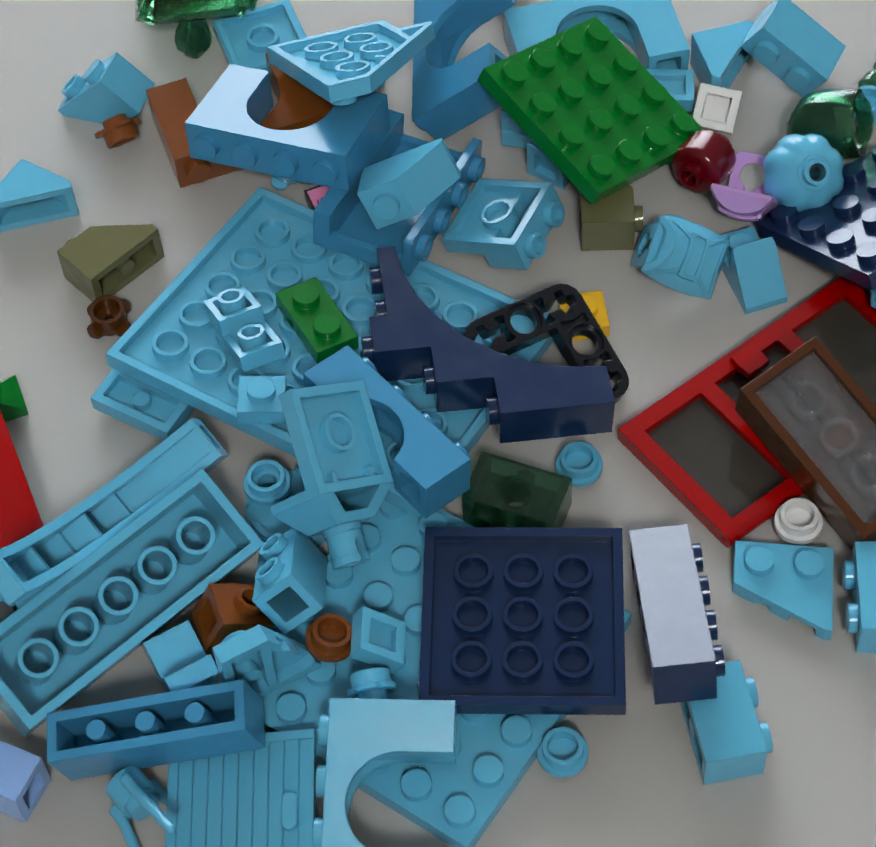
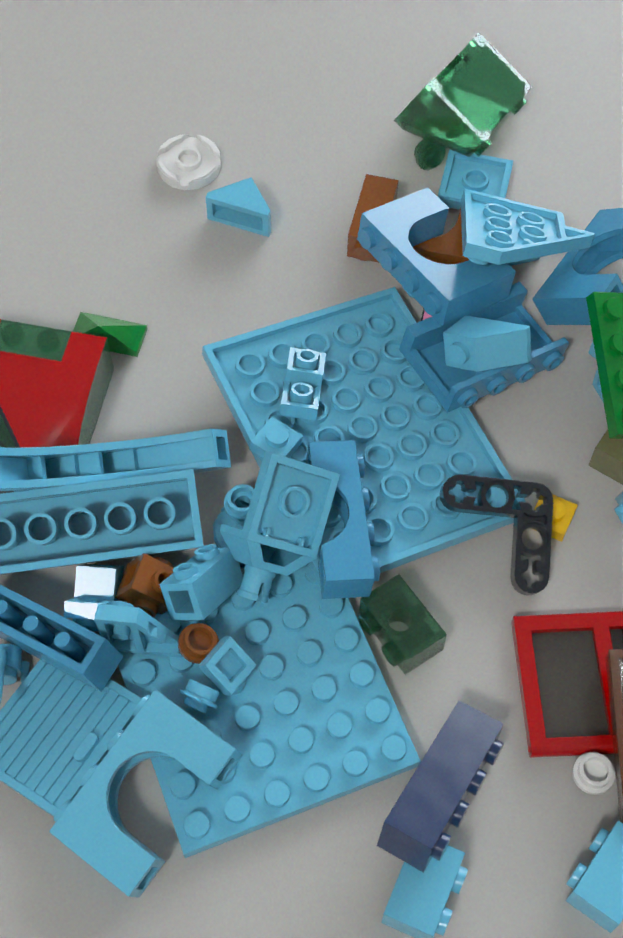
camera: 30 degrees right, 5 degrees up
(105, 91) = (343, 161): medium azure slope -> none
(106, 308) = (229, 313): reddish brown plate -> none
(109, 257) = (261, 279): olive slope -> none
(118, 130) = (332, 192): dark orange plate -> none
(140, 405) = (205, 395): medium azure plate -> none
(316, 319) = (357, 407): green plate -> none
(506, 222) = (545, 413): medium azure plate -> none
(519, 395) = (450, 549): dark blue arch -> none
(524, 620) = (335, 719): dark blue plate -> none
(563, 752) = (299, 831): medium azure plate -> none
(579, 462) = (466, 625): medium azure plate -> none
(787, 581) = (553, 813): medium azure wing -> none

